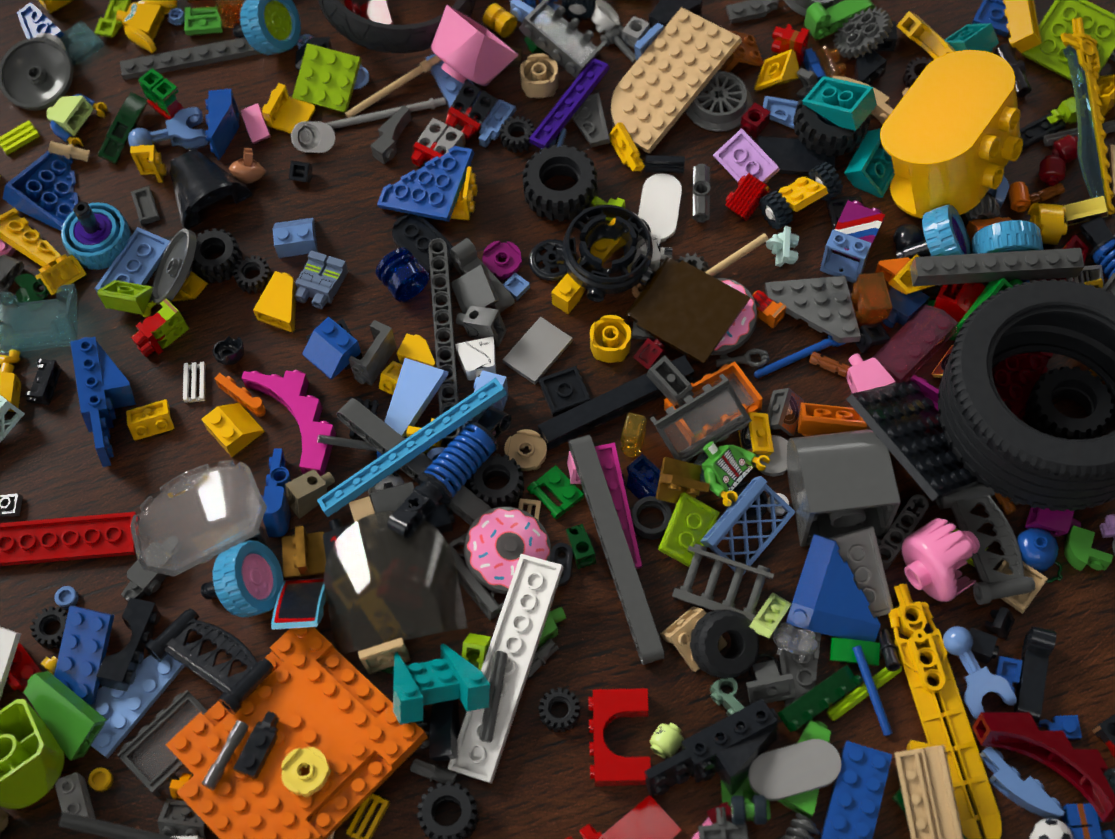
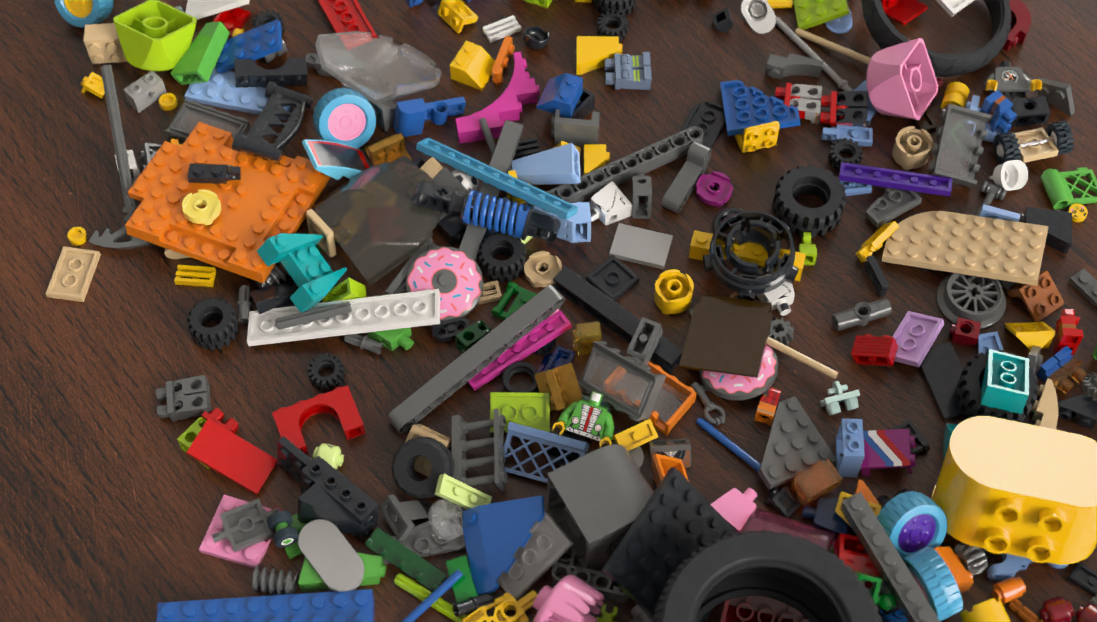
camera: 65 degrees right, 5 degrees down
(66, 597) = (295, 25): medium blue tile -> none
(218, 768) = (186, 155): dark grey piece -> none
(294, 237) = (660, 40): medium blue slope -> none
(305, 490) = (438, 130): dark tan torso -> none
(402, 274) = (658, 120): clear blue wheel -> none
(475, 289) = (670, 177): dark grey tile -> none
(516, 286) = (694, 209): medium blue tile -> none
(634, 31) = (1008, 202): light grey brick -> none
(650, 353) = (676, 328): dark red bracket -> none
(661, 204) = (830, 288): white tile -> none
(727, 700) = (378, 492): sand green plate -> none
(779, 204) = (900, 392): plate -> none
(829, 364) = (737, 473): dark orange axle -> none

